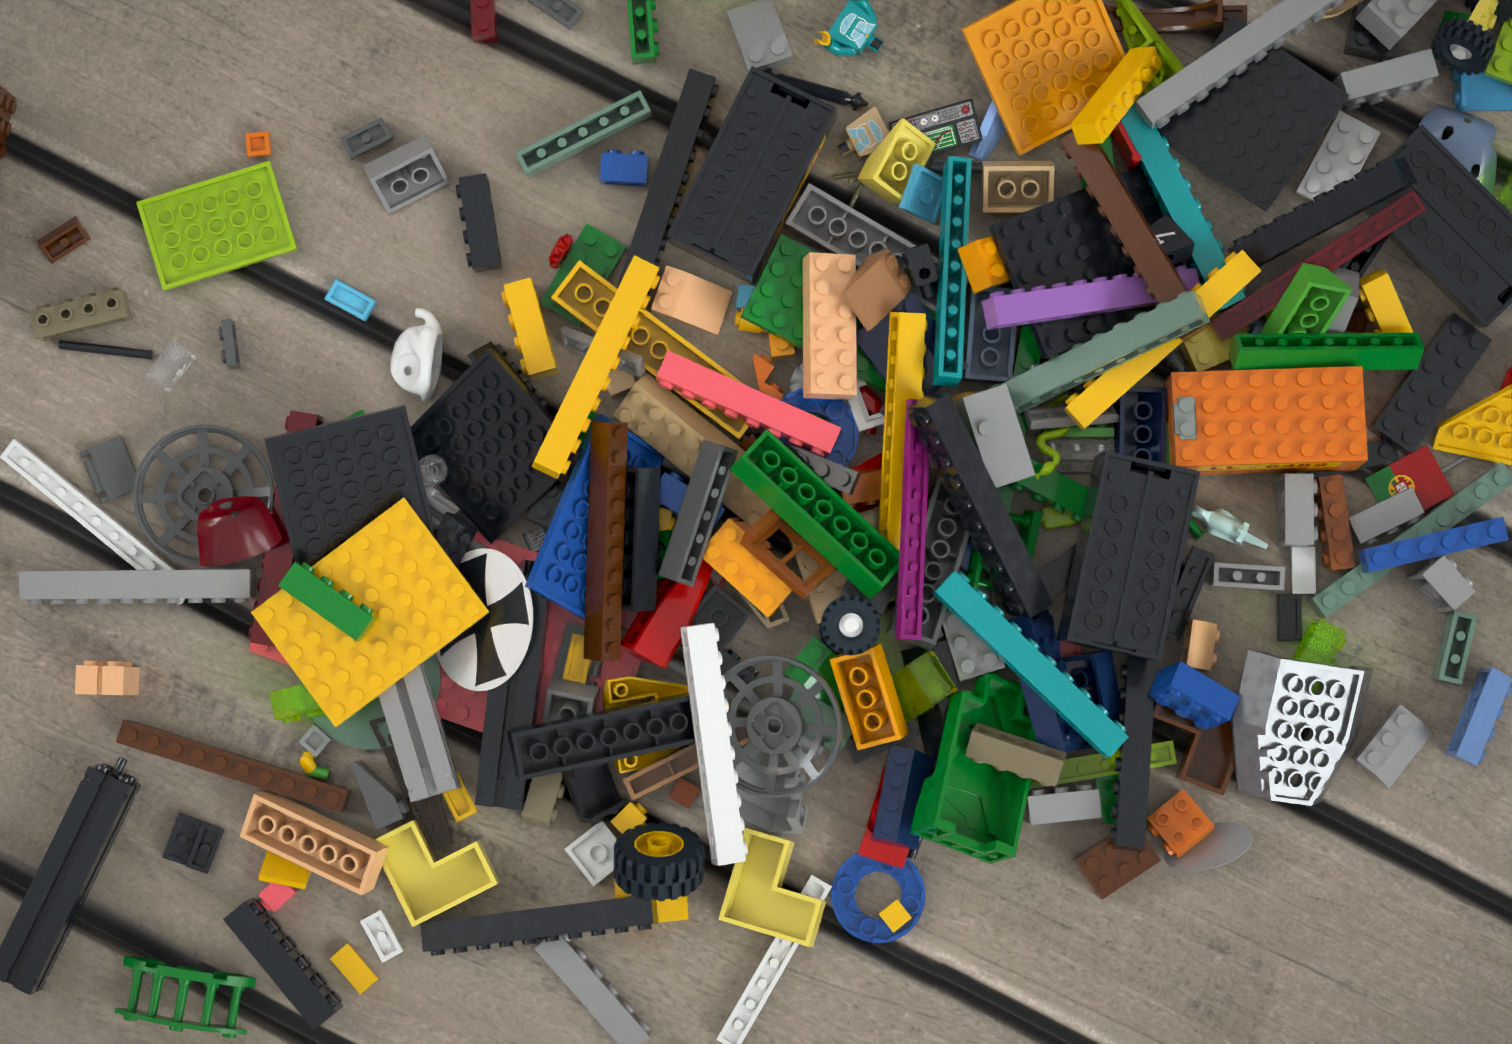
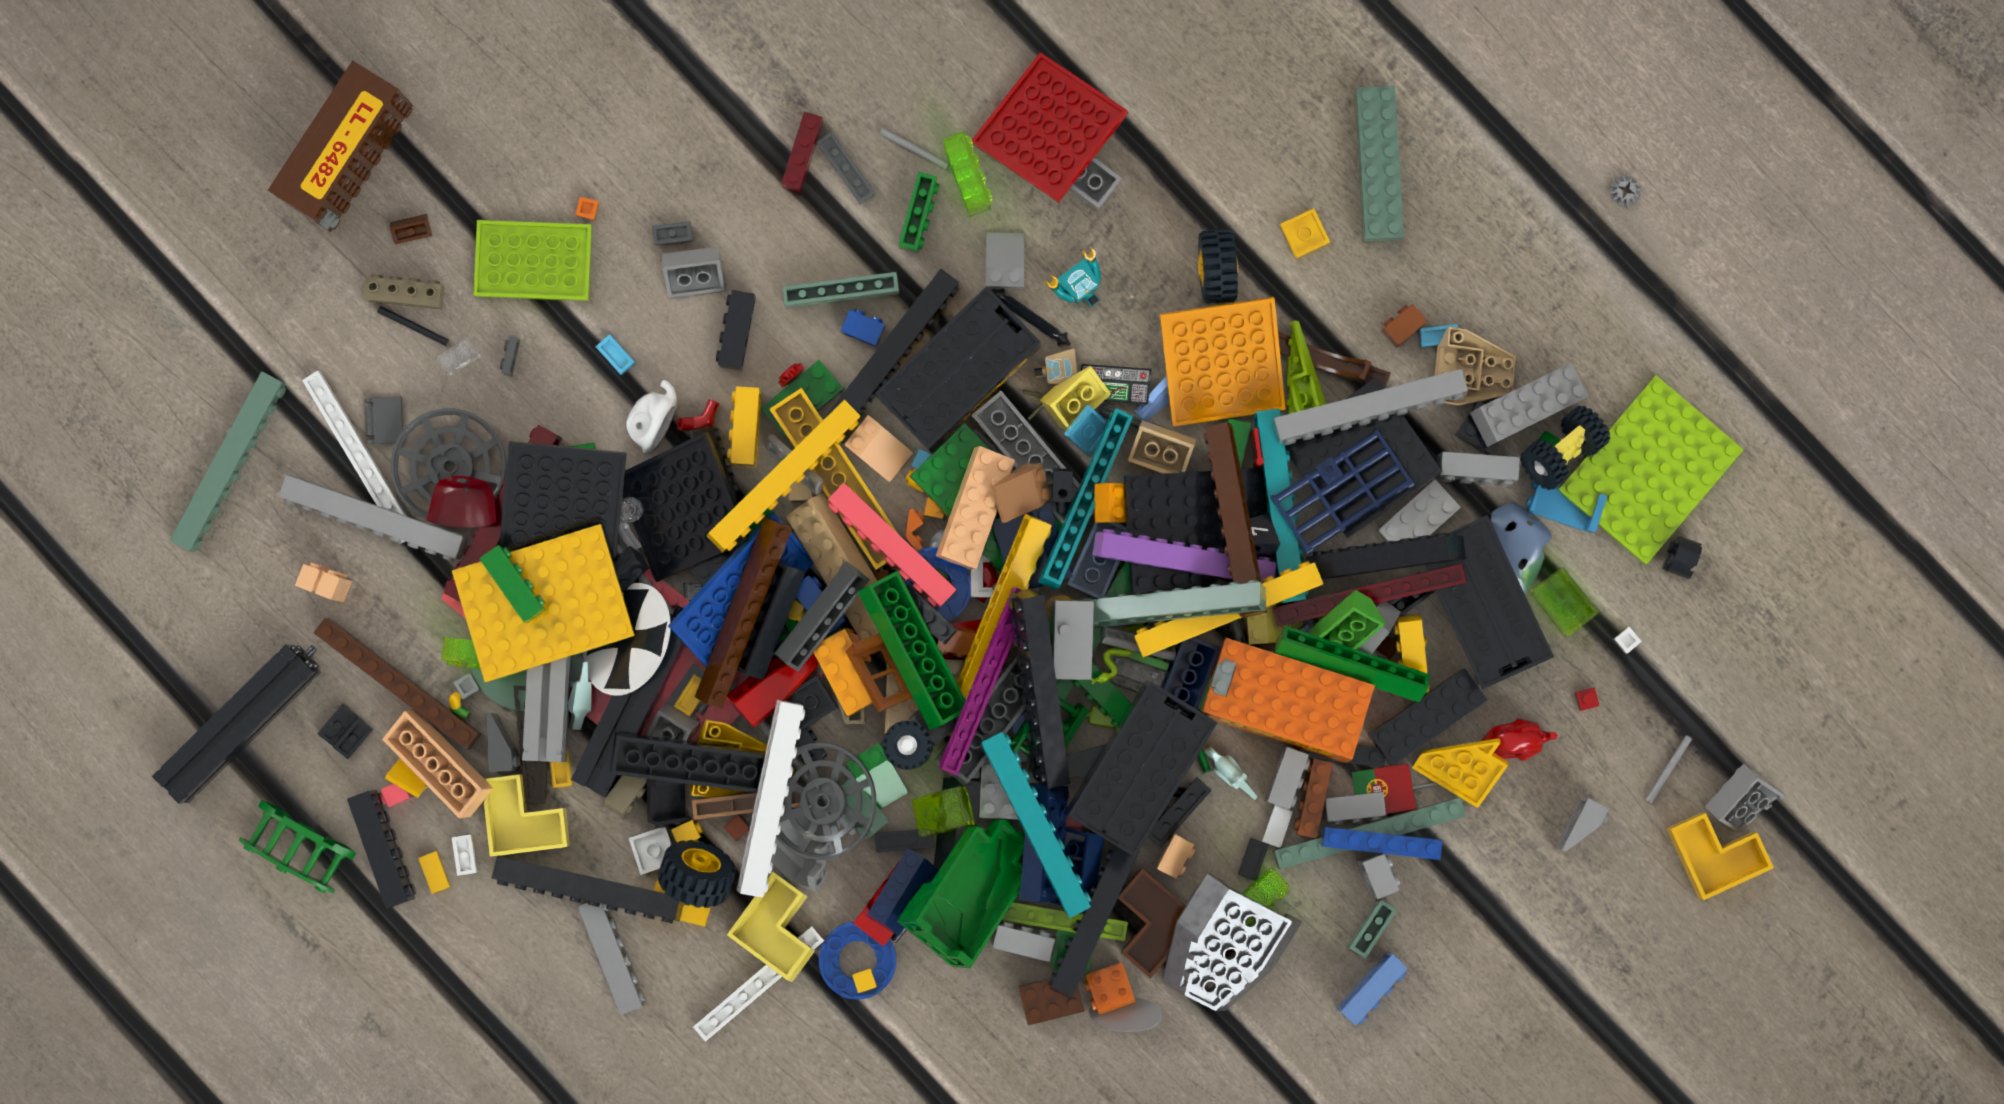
camera: 15 degrees right, 0 degrees up
(451, 708) = (580, 699): none -> light aqua animal
(478, 339) = (704, 420): none -> red arm
(869, 697) = (904, 805): light orange brick -> none
(1016, 755) = (1000, 890): dark tan brick -> none
(1116, 95) = (1260, 408): yellow brick -> none
(1193, 695) = (1153, 893): blue brick -> none
(1228, 146) = (1334, 478): none -> dark blue door
(1247, 577) = (1230, 816): light grey brick -> none
(1392, 745) = (1297, 987): light grey slope -> none

